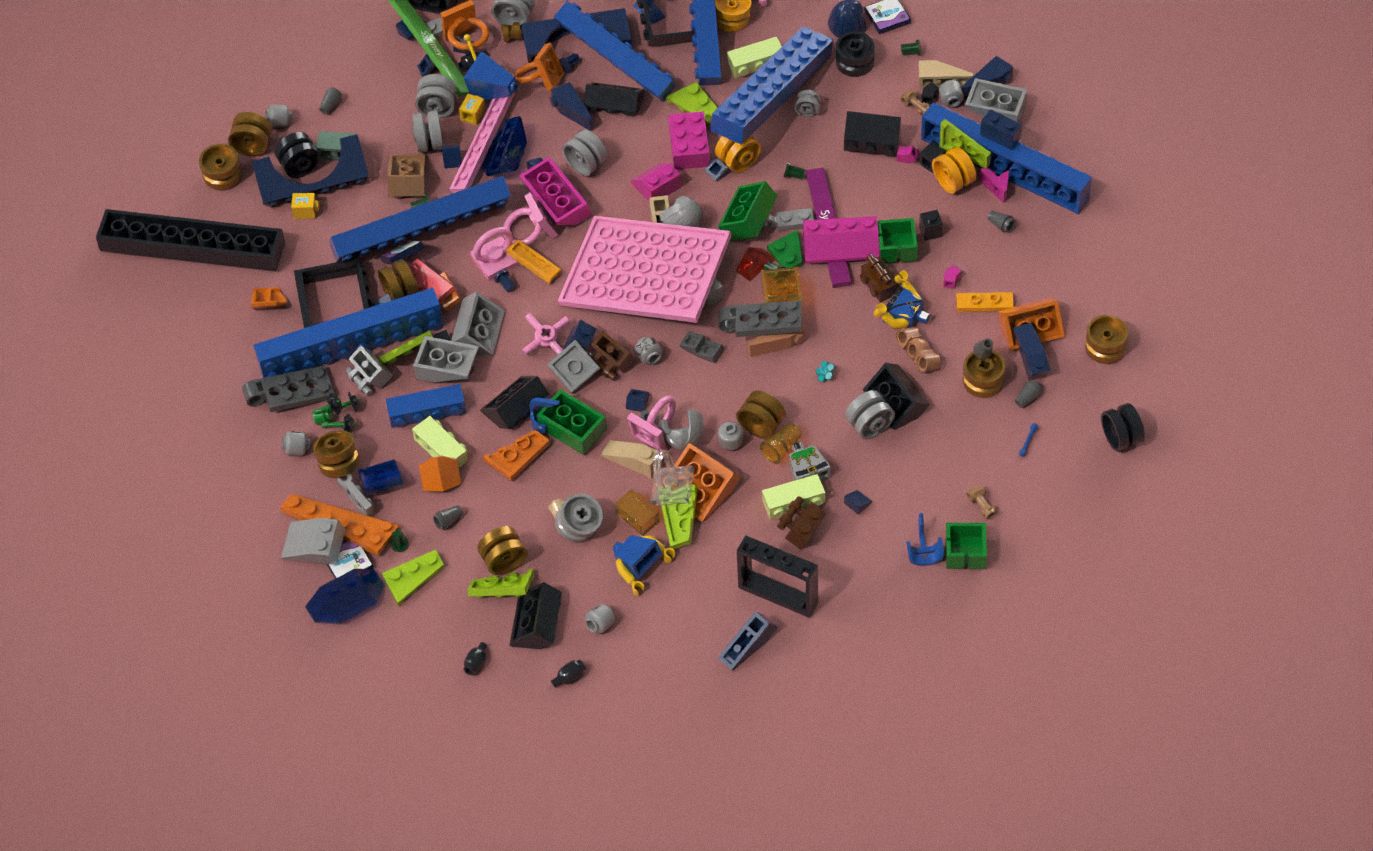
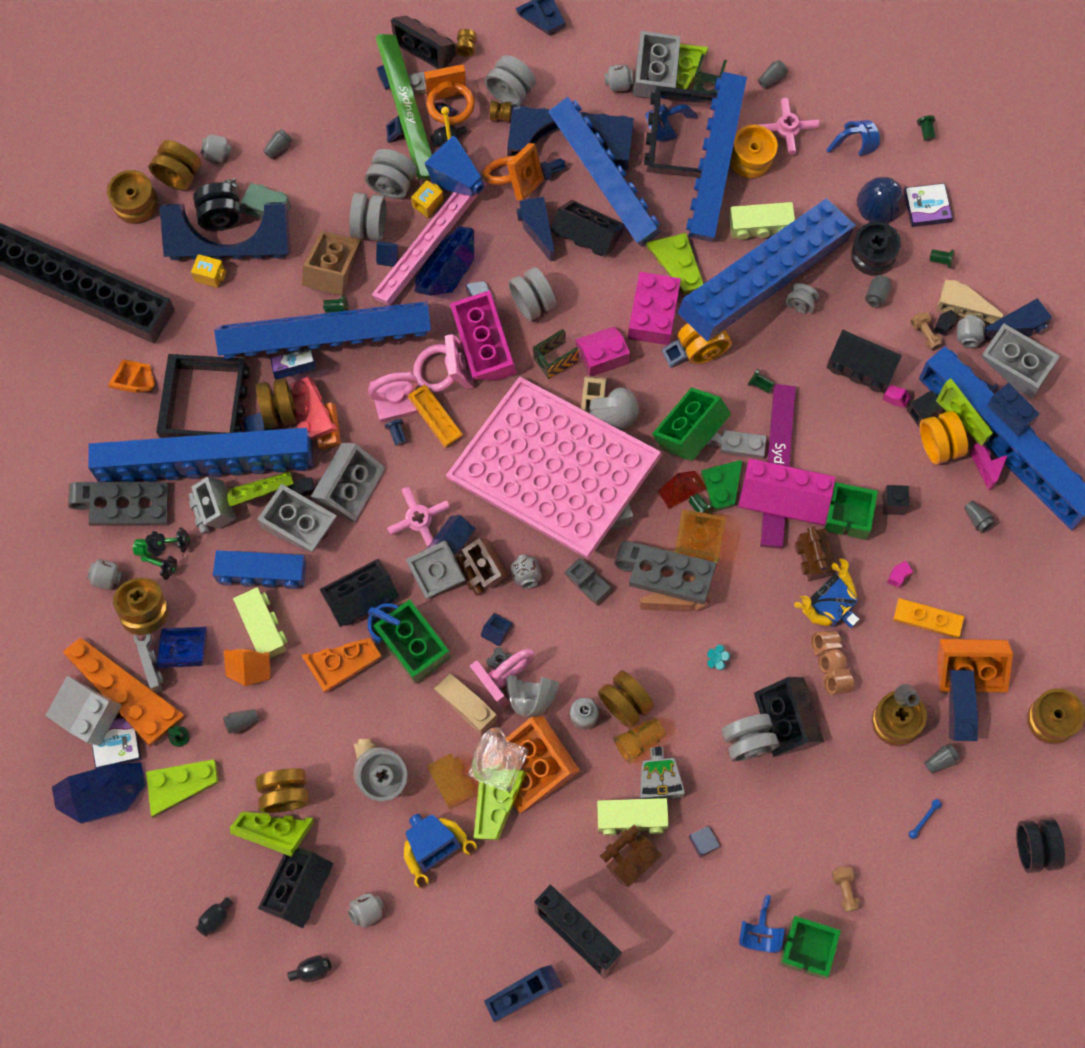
camera: 15 degrees right, 15 degrees up
(623, 199) = (559, 364): none -> piece
(867, 84) = (878, 291): none -> dark grey brick

